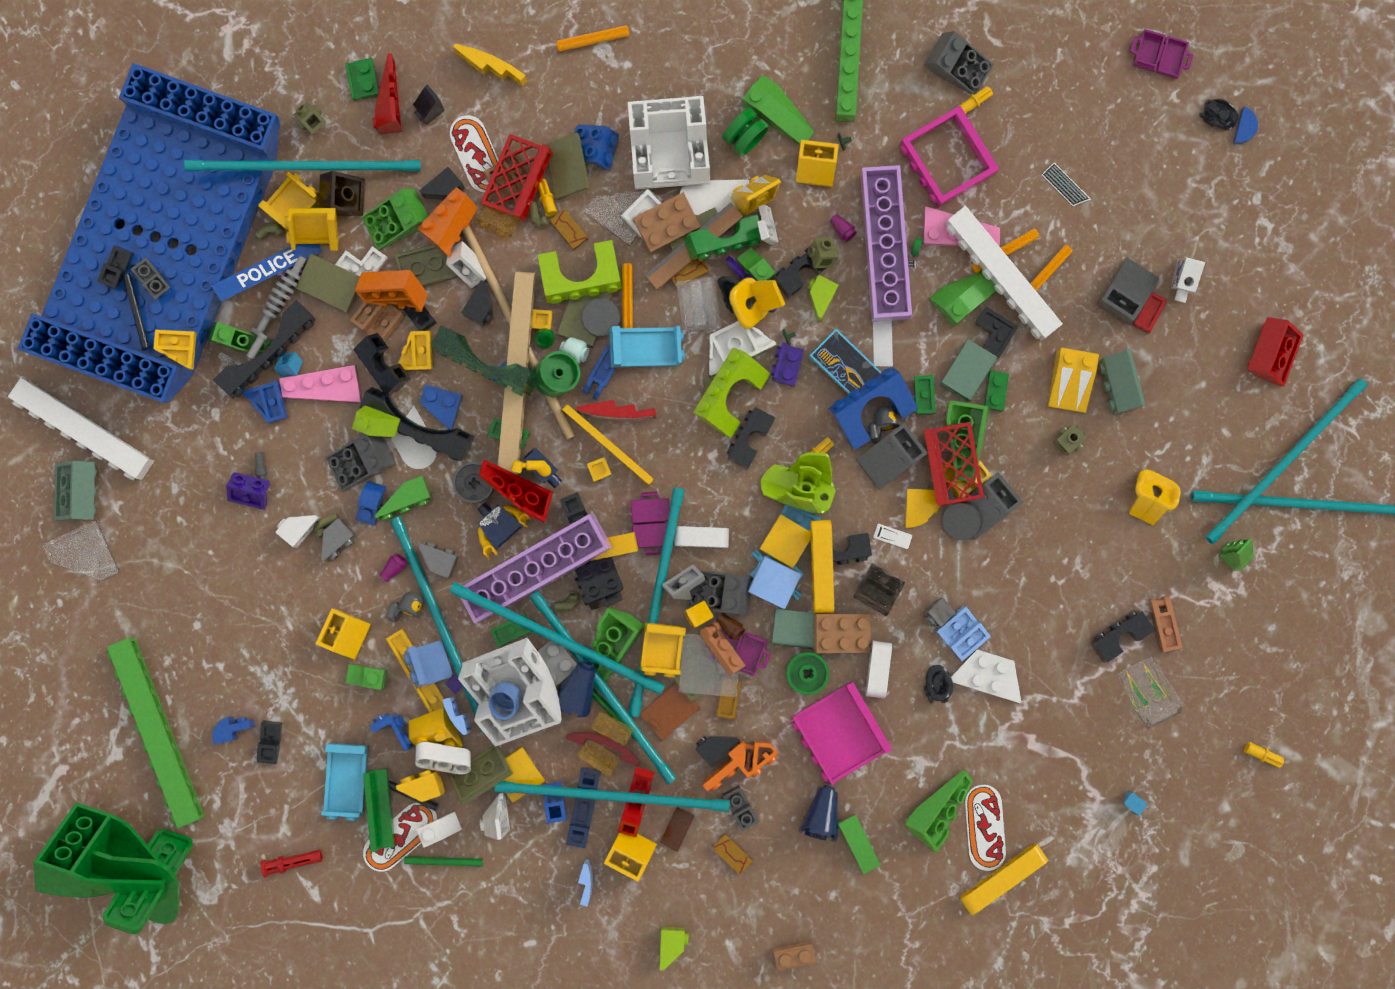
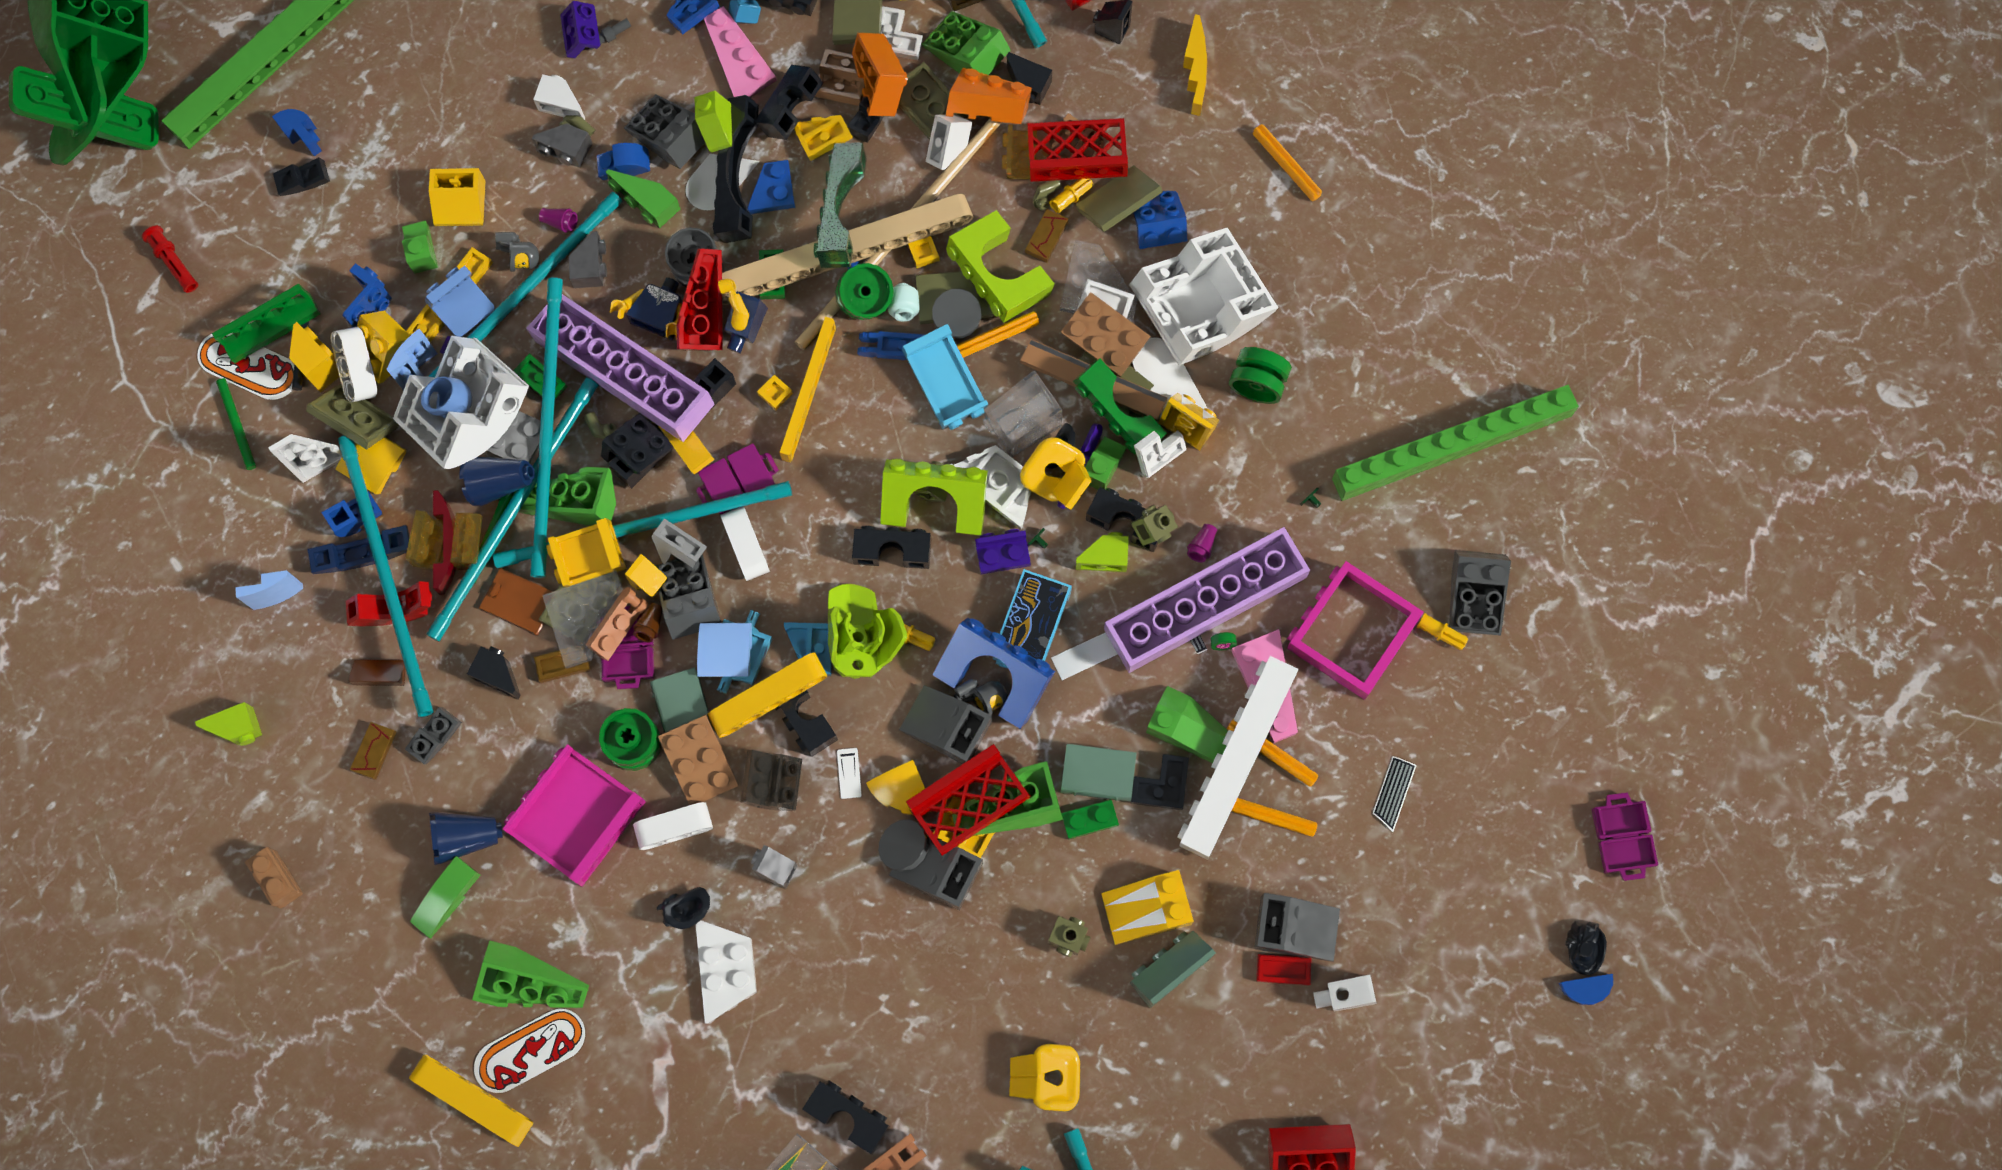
camera: 70 degrees right, 10 degrees down
(345, 781) = (307, 265): medium azure panel -> none
(439, 829) = (270, 400): white slope -> none
(473, 149) = (1091, 92): sticker -> none
(479, 306) = (908, 176): black slope -> none
(544, 338) = (903, 263): green tile -> none
(608, 410) = (851, 375): red slope -> none
(630, 855) = (322, 628): yellow slope -> none
(691, 271) = (1064, 394): pearl gold tile -> none
(762, 753) = (491, 710): orange piece -> none
(777, 110) = (1312, 396): bright green wedge -> none
(786, 541) = (780, 640): yellow slope -> none
(816, 163) = (1265, 476): yellow slope -> none
(924, 394) = (1042, 731): green plate -> none
(963, 633) = (764, 912): light blue slope -> none

